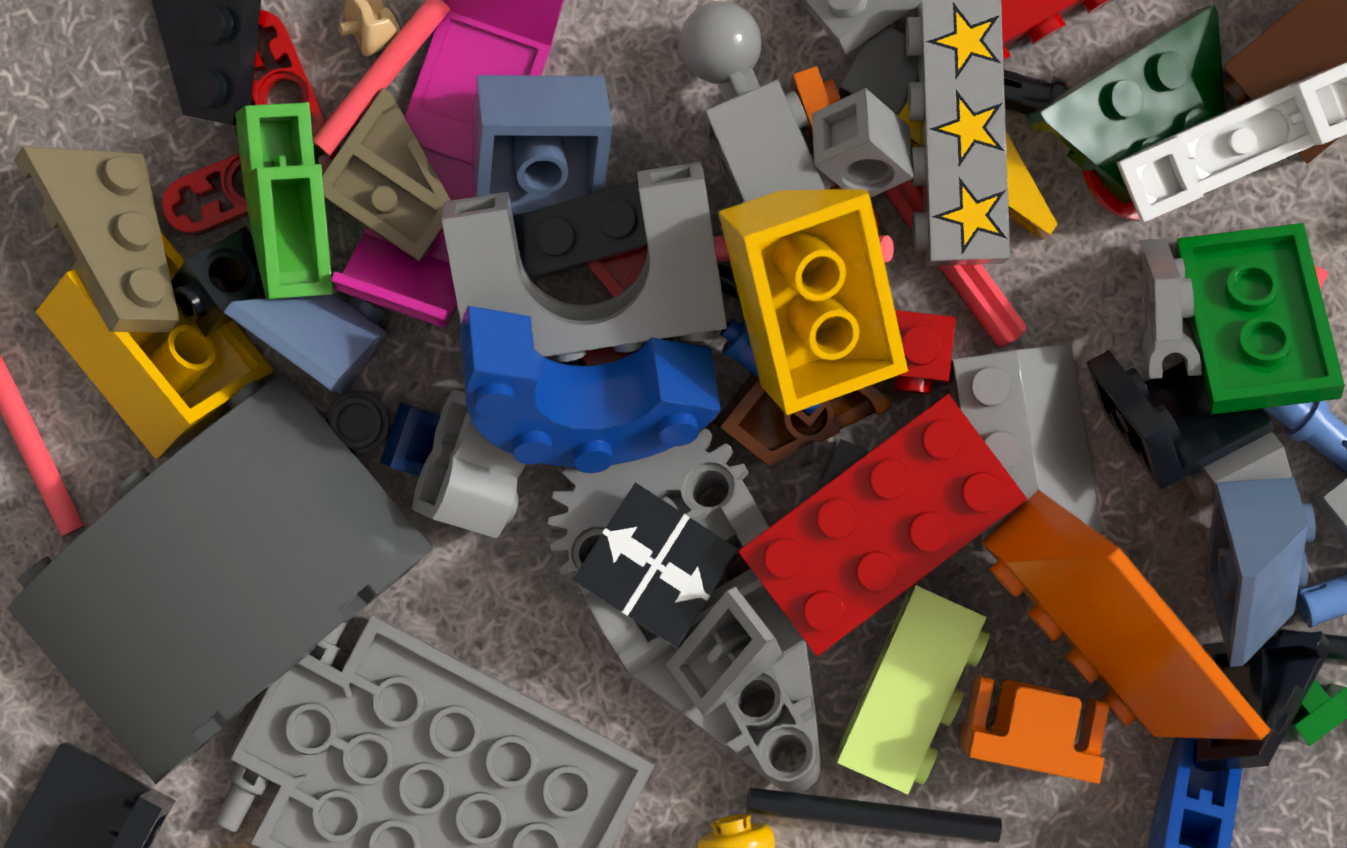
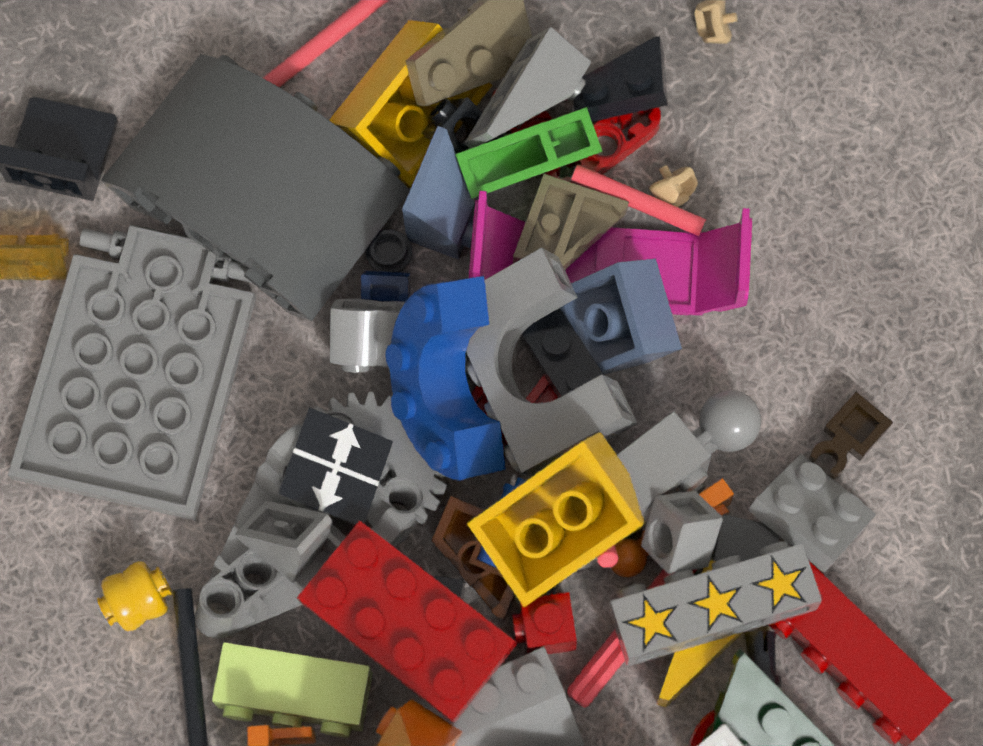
camera: 85 degrees right, 15 degrees down
(186, 164) = (538, 79): none -> light grey slope

